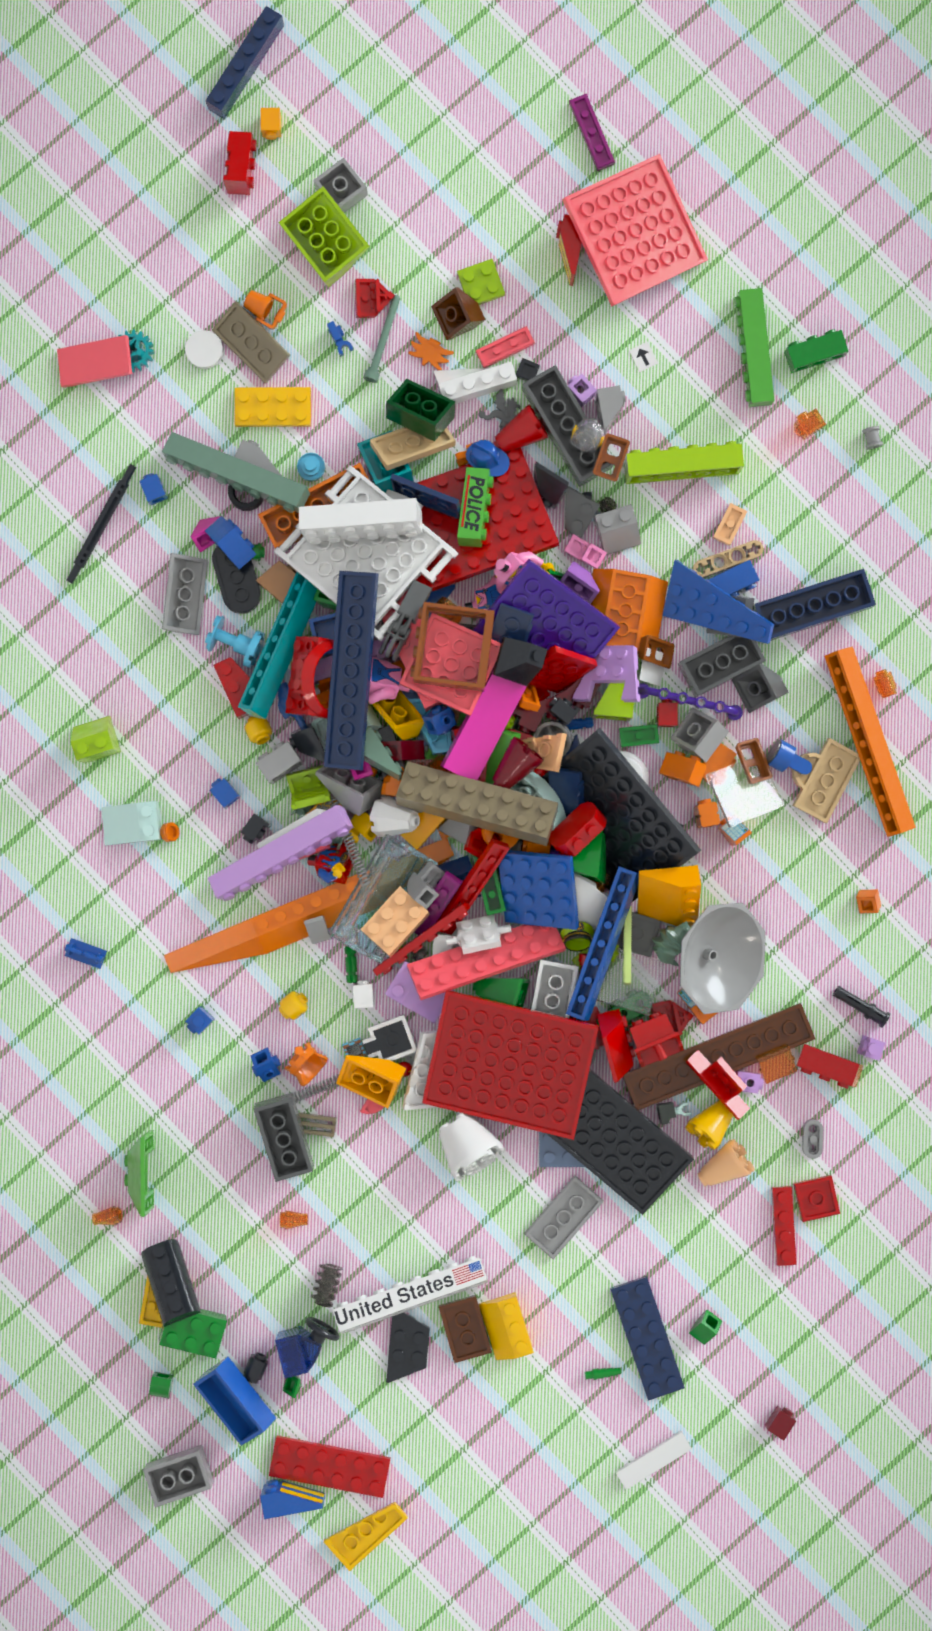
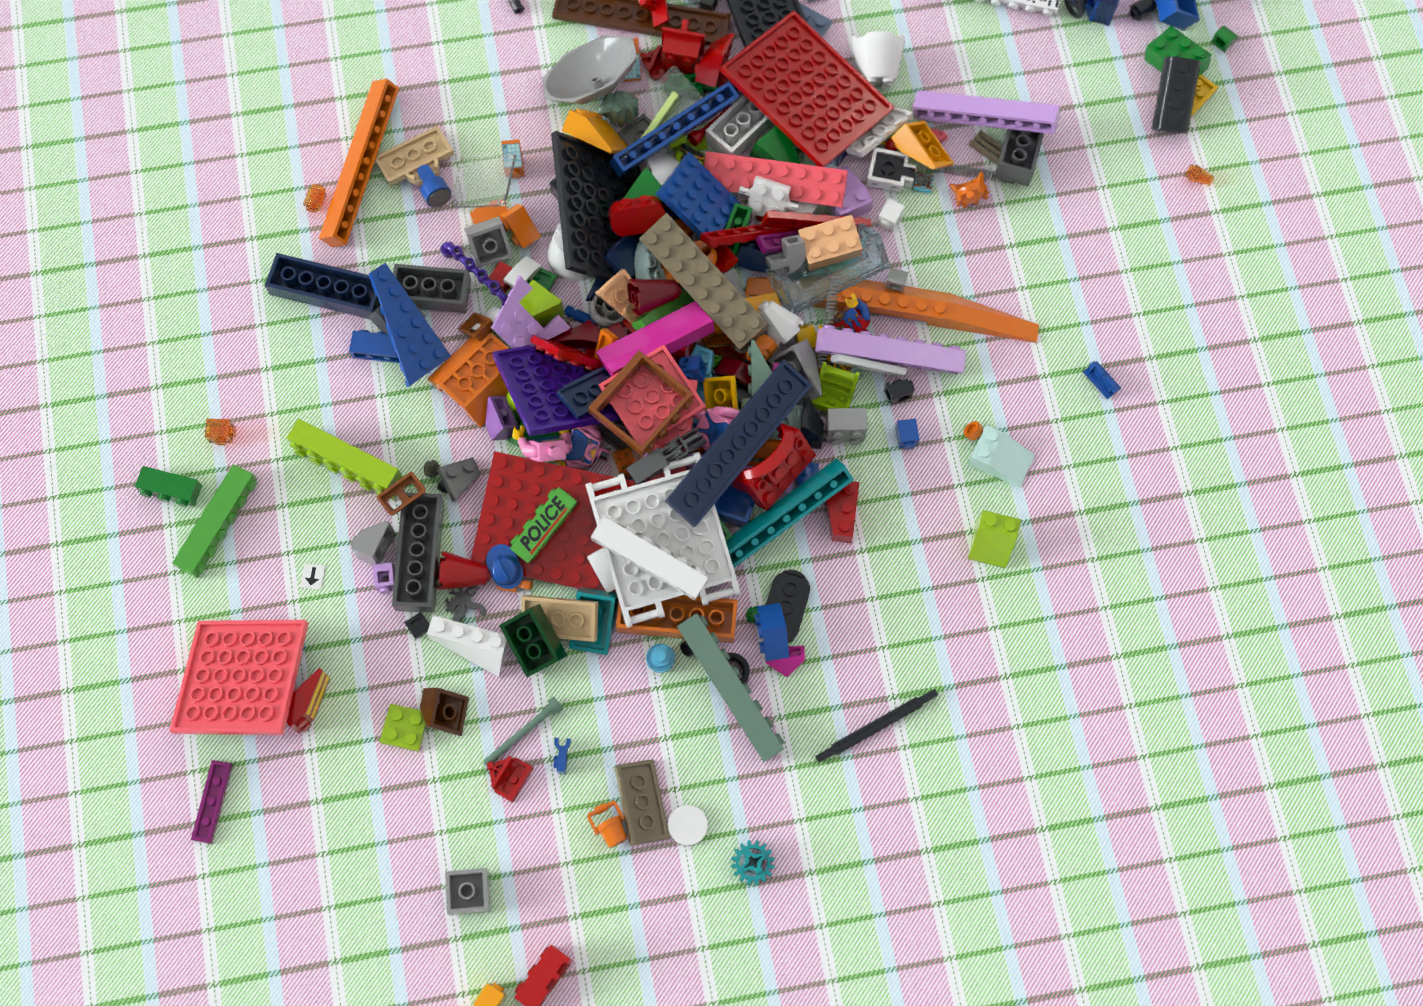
camera: 150 degrees left, 15 degrees down
(94, 361) = (794, 873): coral tile -> none
(138, 1174) = (1154, 186): bright green slope -> none
(153, 488) = (811, 725): blue brick -> none
(184, 594) = (839, 617): light grey slope -> none
(199, 1020) = (1036, 272): blue brick -> none
(241, 644) = (812, 534): medium azure piece -> none
(253, 454) = (706, 695): light grey slope -> none
(258, 730) = (851, 463): yellow head -> none
(265, 1064) = (1002, 213): blue brick -> none
(273, 407) = (659, 734): yellow plate -> none
(277, 580) = (751, 576): medium nougat torso -> none
(292, 1219) = (1050, 91): clear orange cone -> none
(293, 1005) = (952, 239): yellow head -> none
(325, 236) = (512, 852): lime slope -> none
(327, 1284) = (1051, 31): clear smoke piece -> none
(333, 1148) = (987, 112): none -> lavender brick
(351, 965) = (889, 238): green axle -> none
(426, 496) = (574, 553): dark blue piece -> none
(430, 351) = (489, 695): orange piece -> none
(505, 347) = (423, 658): coral tile -> none
(519, 661) = (593, 363): black slope -> none
(550, 486) = (469, 508): black slope -> none
(562, 710) = (584, 320): black brick -> none
(584, 551) = (477, 444): bright pink slope -> none
(588, 435) = (407, 525): clear hair -> none
(617, 529) = (437, 445): light grey slope -> none
(650, 726) = (525, 268): none -> white slope
(706, 813) = (526, 182): orange brick -> none
(727, 558) = (367, 364): tan beam -> none
(729, 524) = (343, 393): light nougat plate -> none
(758, 760) = (455, 198): dark orange piece -> none
(759, 687) = (414, 249): dark grey slope -> none
(868, 901) = (447, 55): orange slope -> none
(872, 437) = (177, 389): light grey bush -> none

